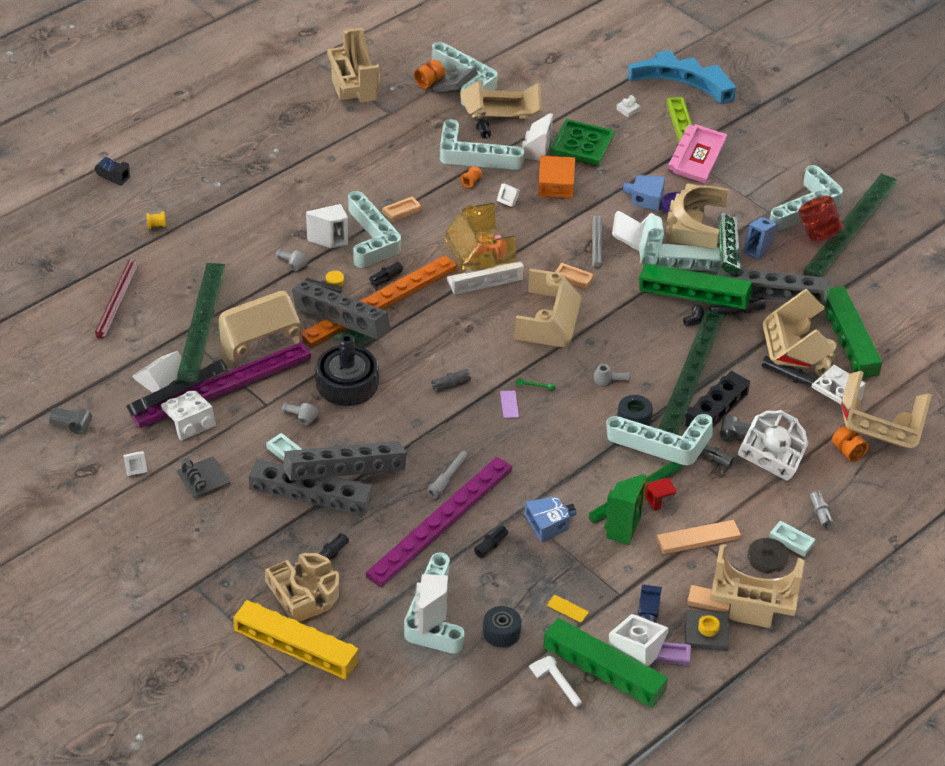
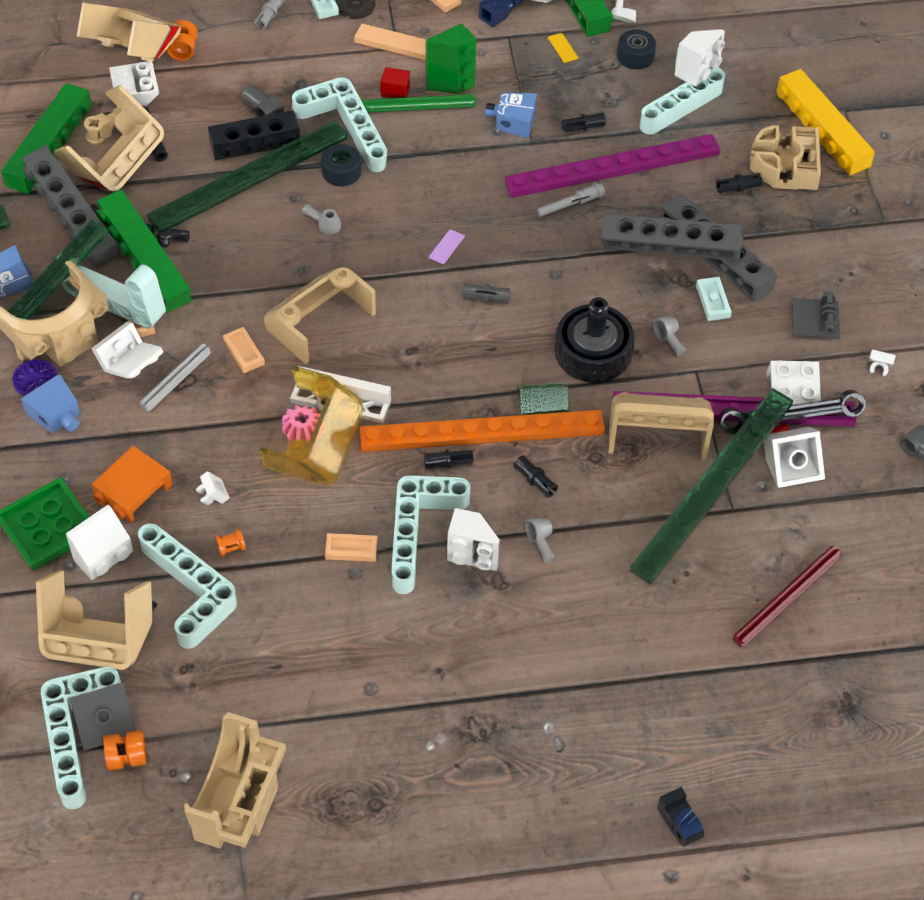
camera: 145 degrees left, 10 degrees up
(156, 220) = (672, 690): yellow bush -> none
(335, 278) = (510, 486): yellow tile -> none
(341, 309) = (551, 405): dark grey brick -> none
(519, 382) = (390, 239): green hinge -> none
(766, 442) = (253, 51): white connector -> none

